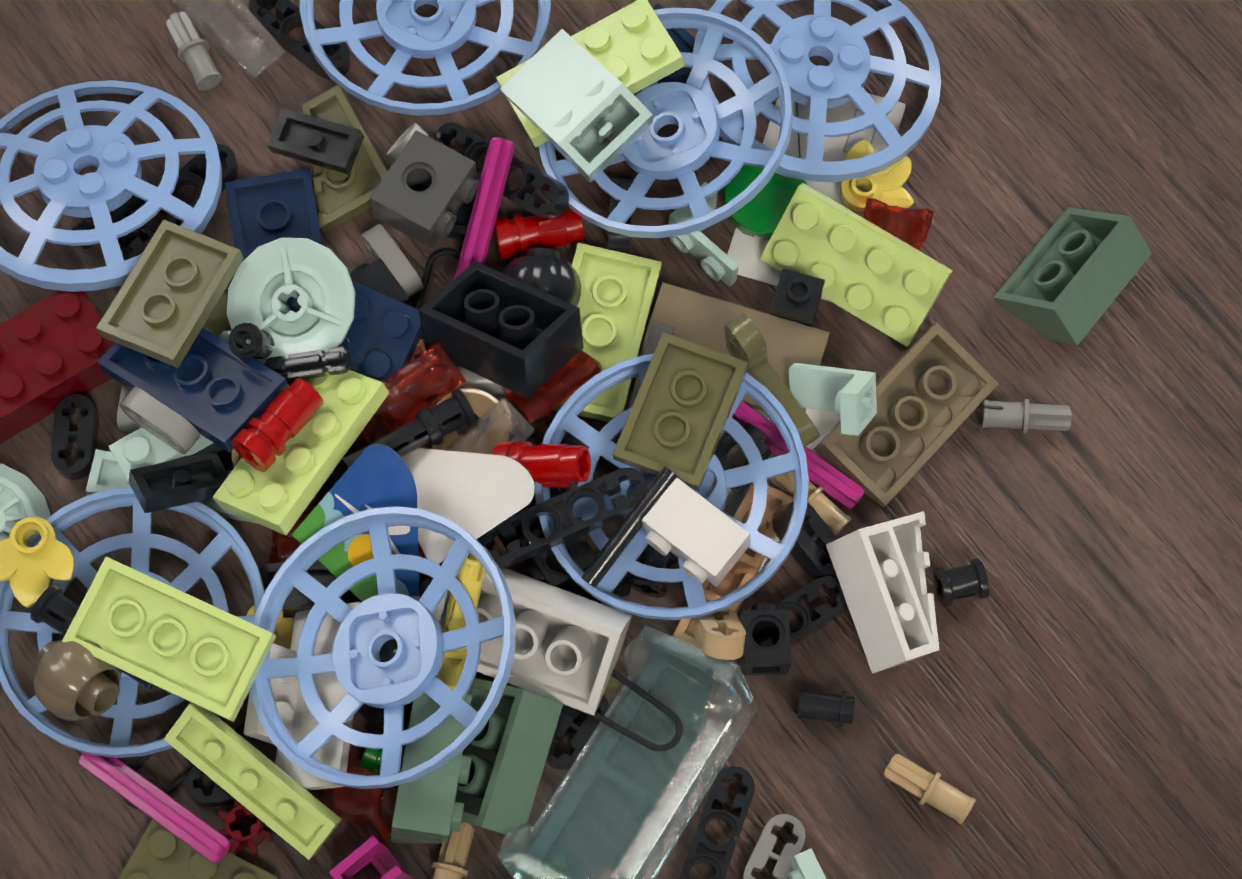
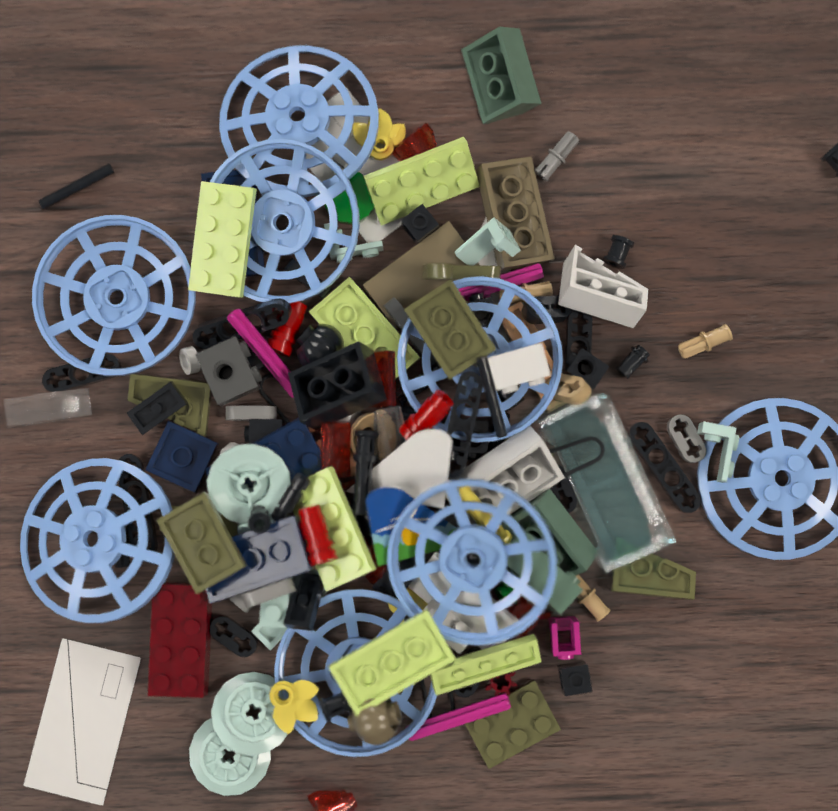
camera: 55 degrees left, 15 degrees up
(193, 51) = (51, 435): light grey axle -> none
(577, 105) = (244, 263): light aqua slope -> none

